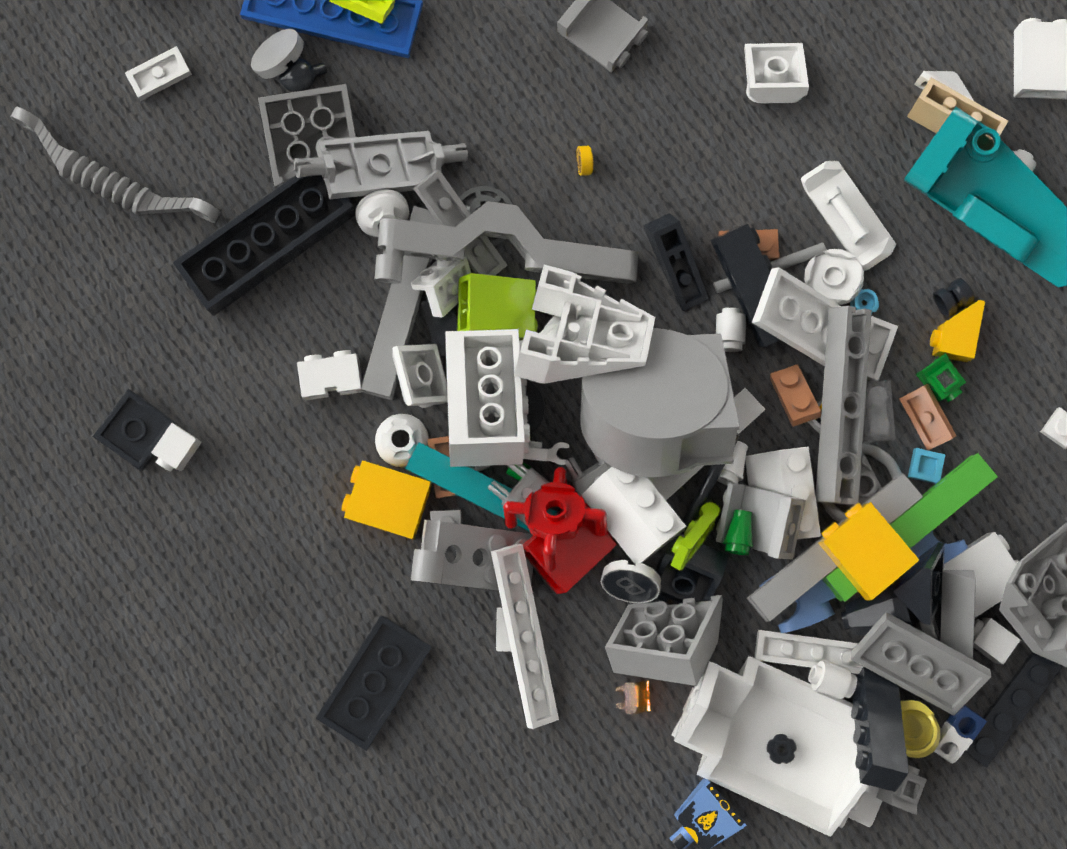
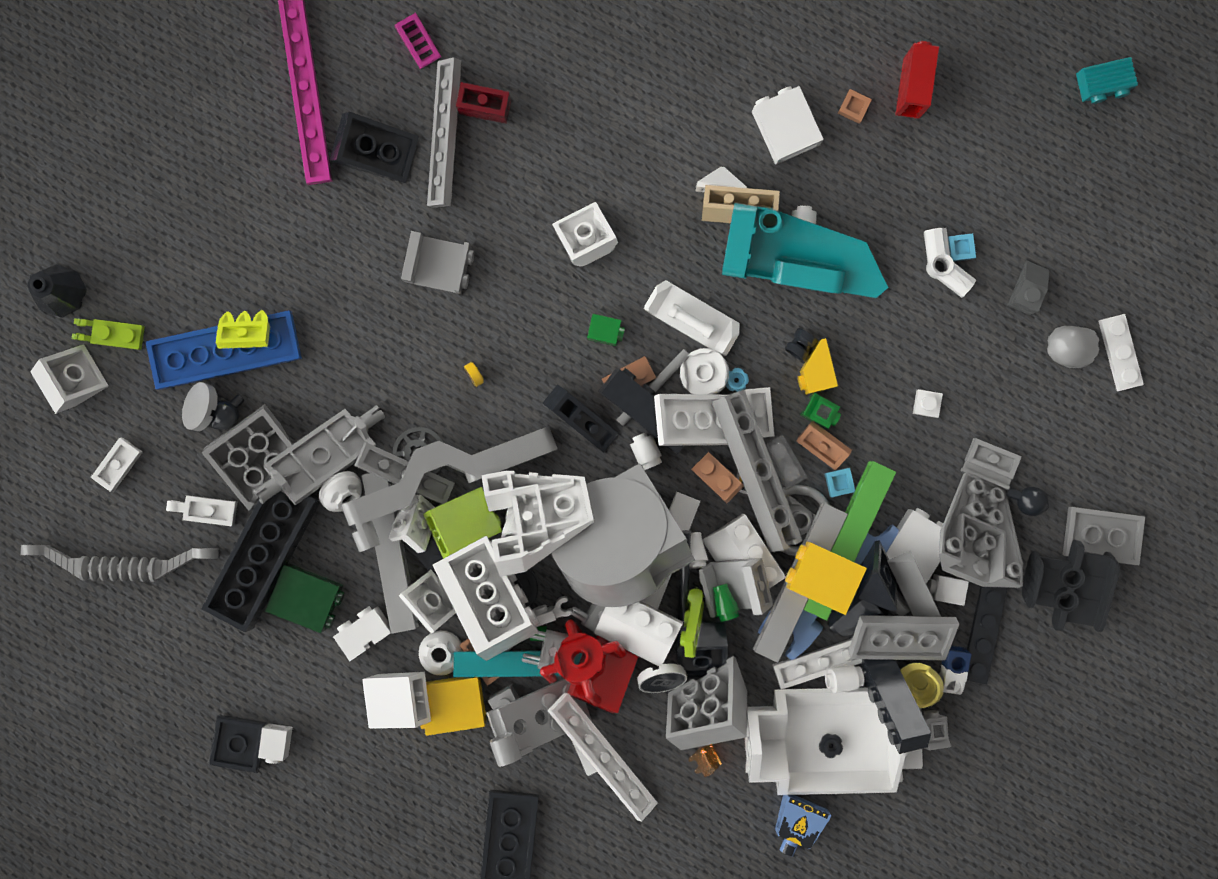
camera: 20 degrees left, 5 degrees up
(227, 165) = (205, 510): none -> white plate
(287, 309) = (305, 598): none -> dark green brick
(331, 463) = (396, 700): none -> white brick
(748, 181) = (605, 330): none -> green brick

